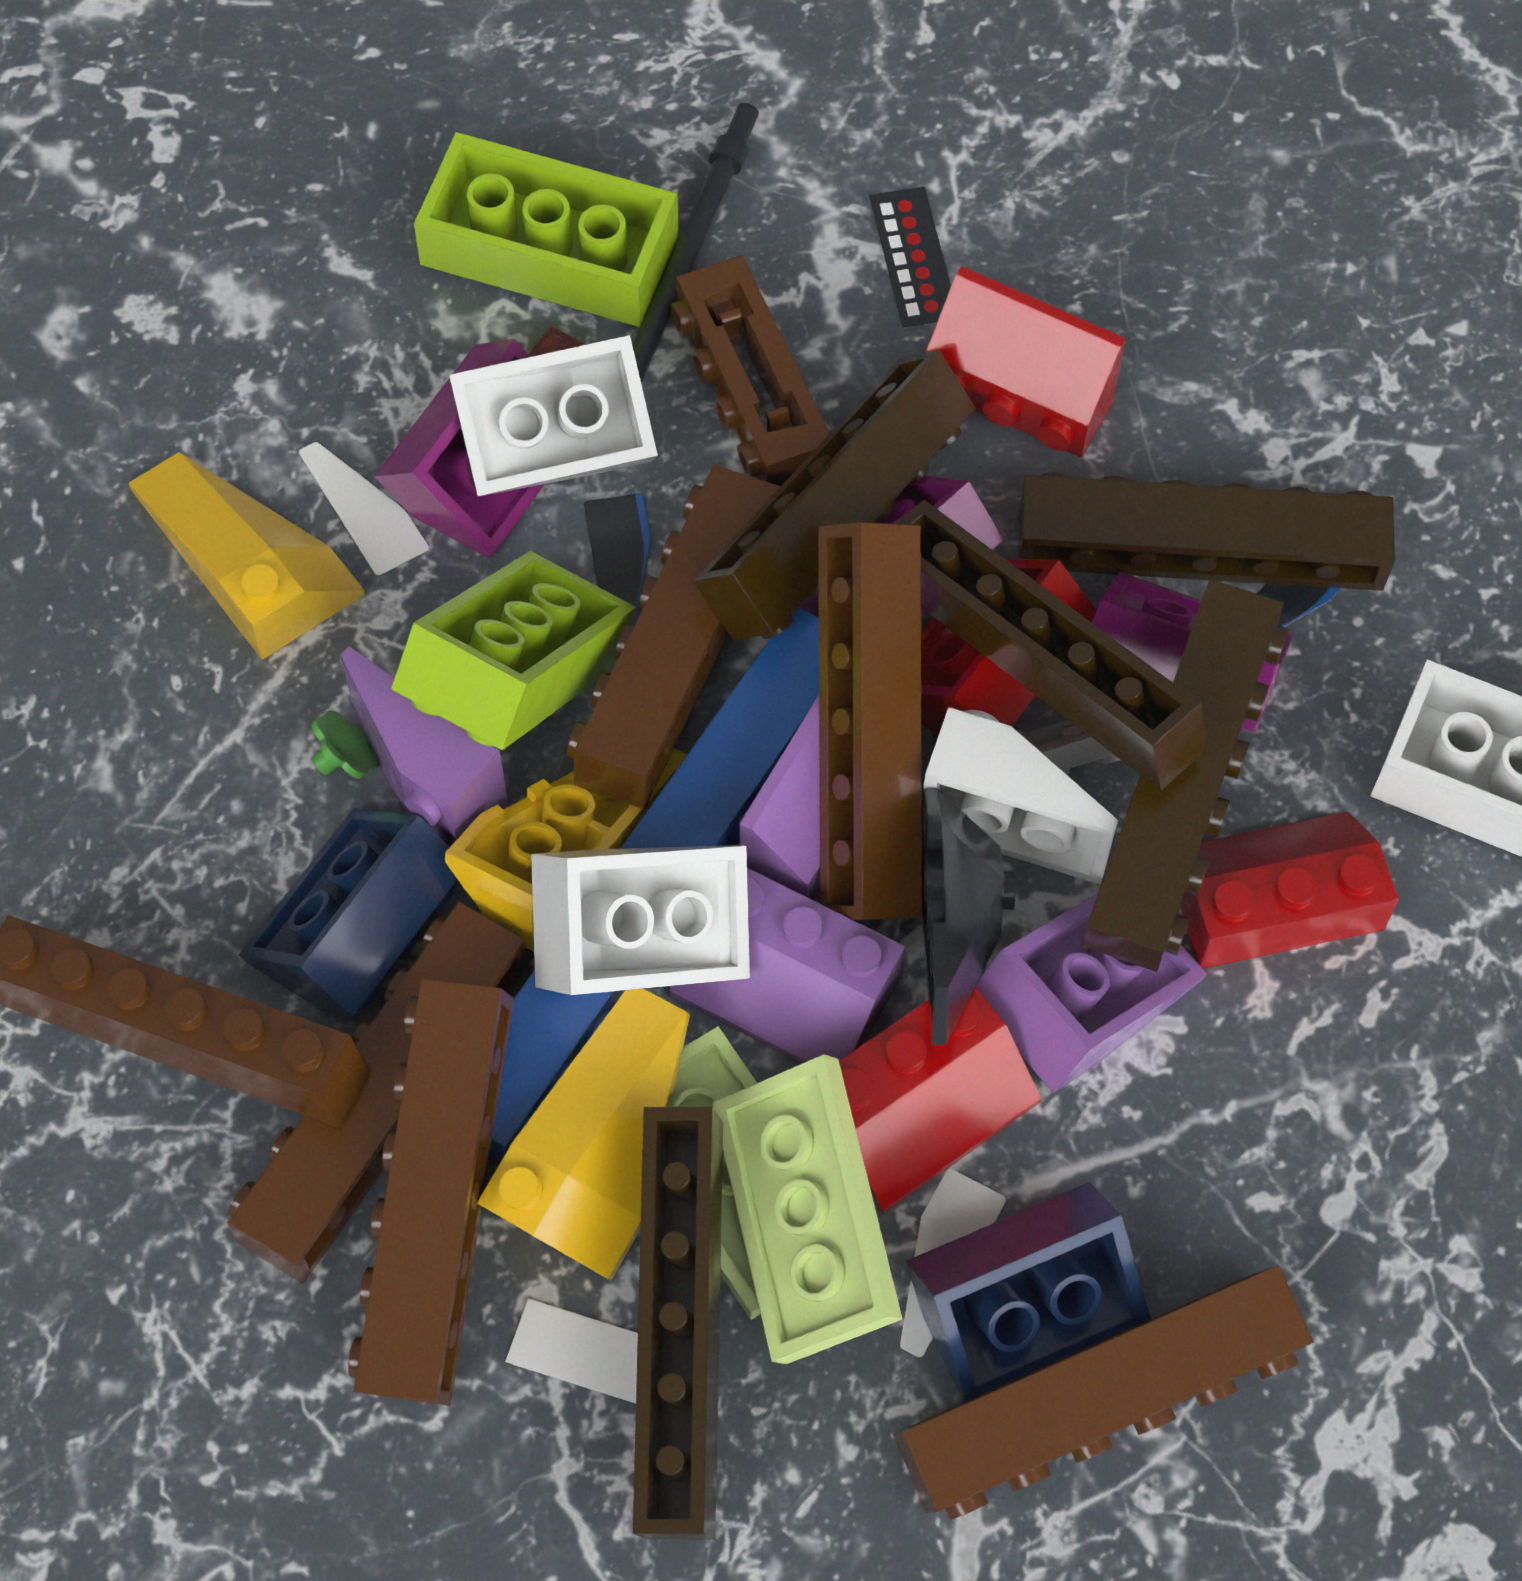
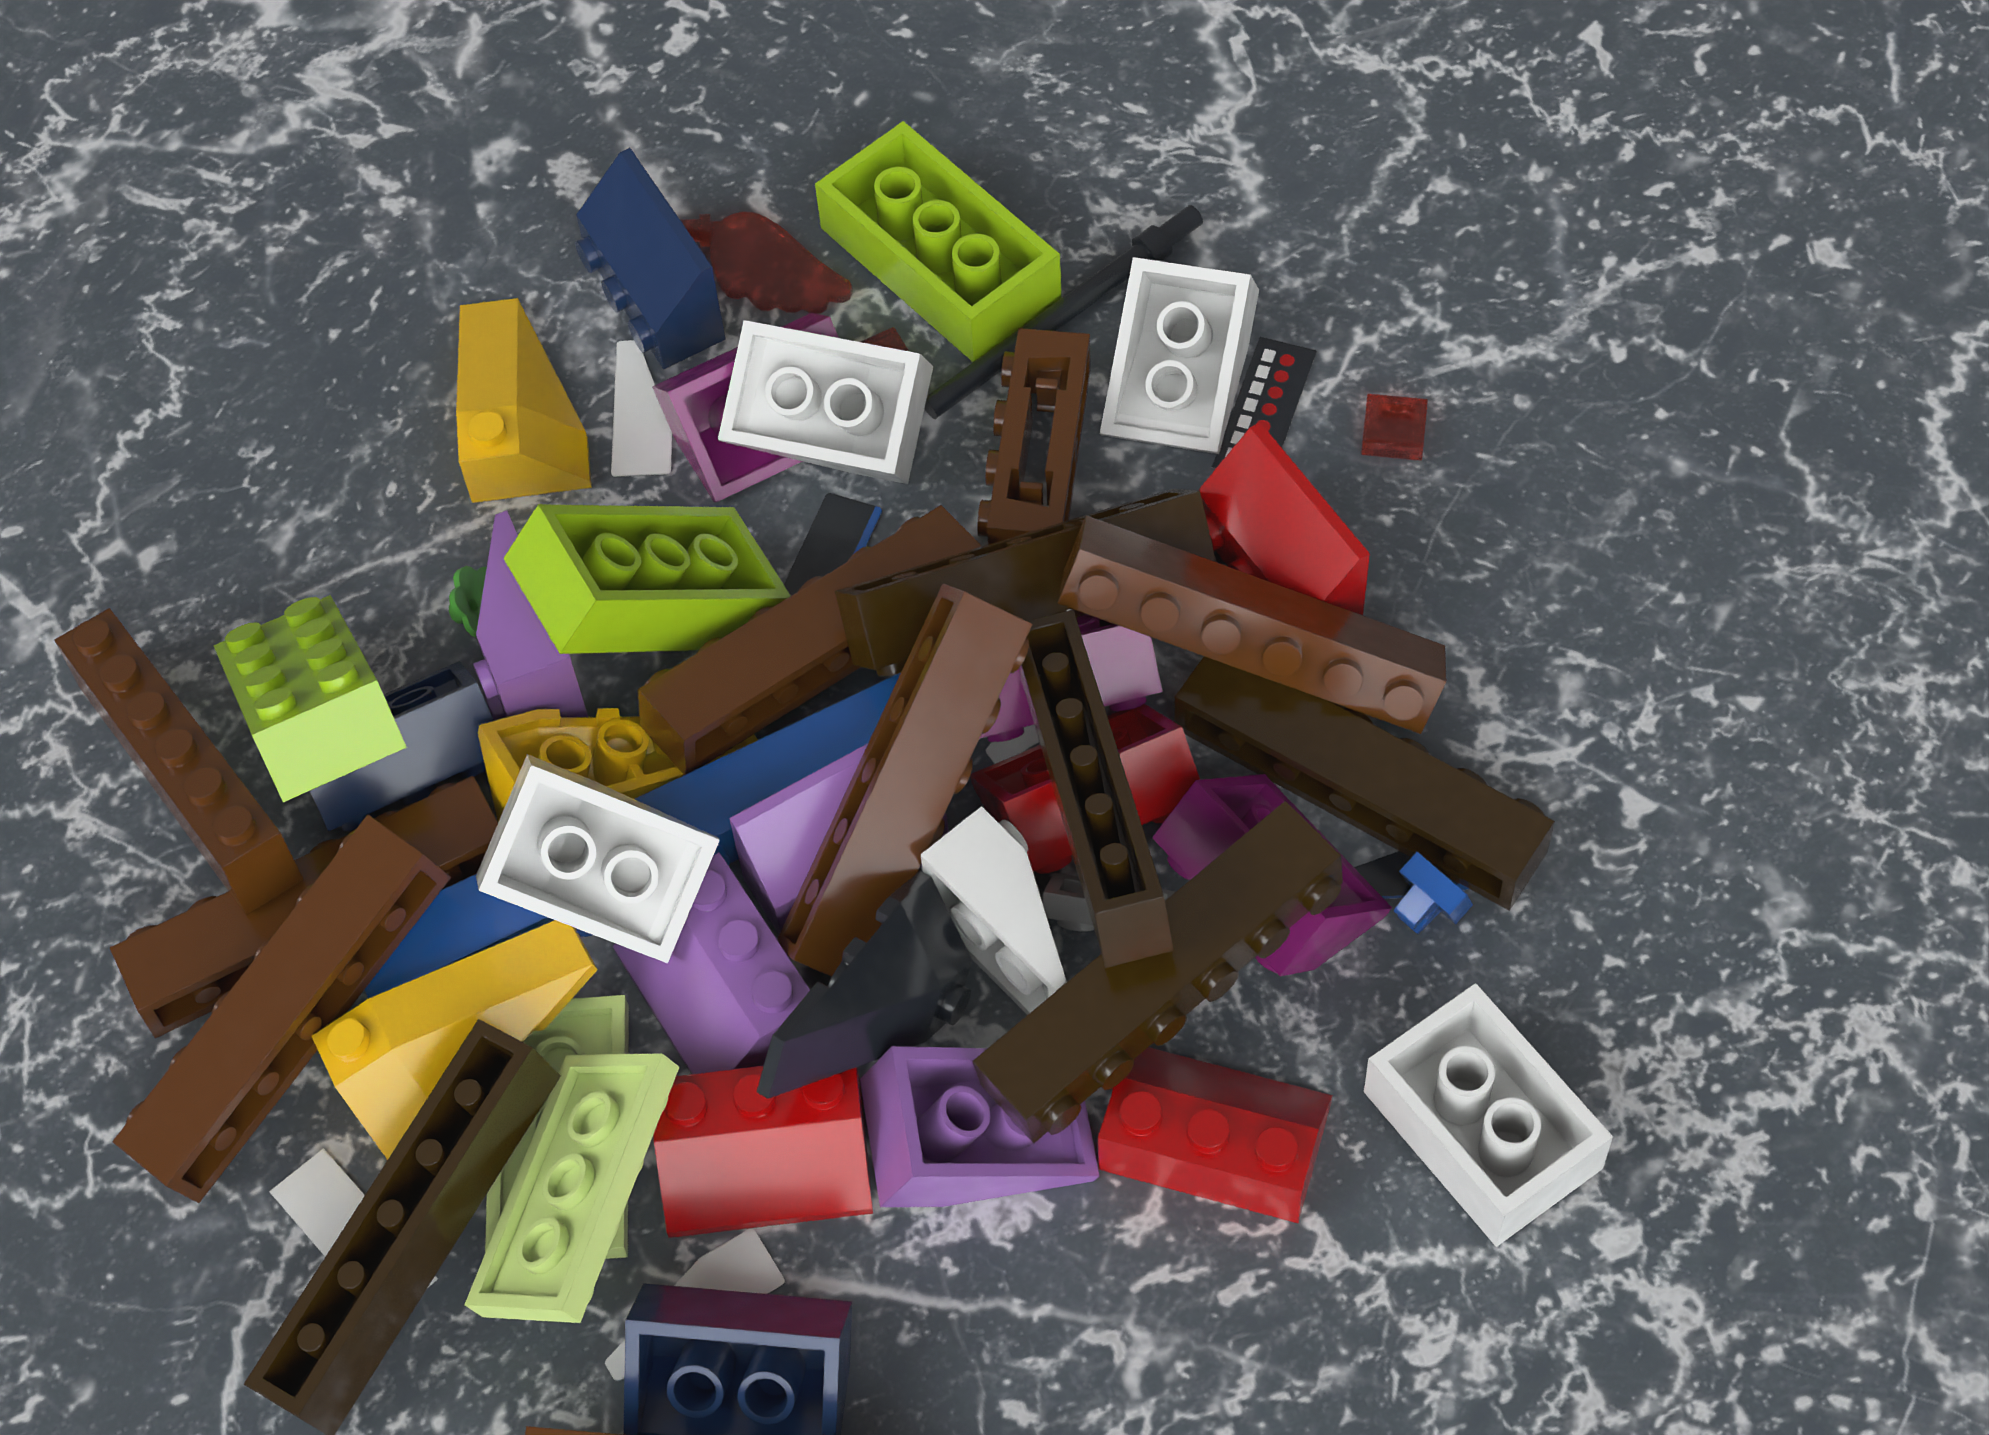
camera: 35 degrees right, 5 degrees down
(272, 902) = (308, 696): none -> lime brick
(297, 361) = (649, 264): none -> dark blue slope
(388, 319) = (766, 264): none -> clear red animal
(822, 241) = (1179, 355): none -> white slope
(1034, 224) = (1394, 427): none -> clear red tile
(1056, 445) = (1253, 625): none -> reddish brown brick
(1325, 606) = (1429, 895): none -> blue tile

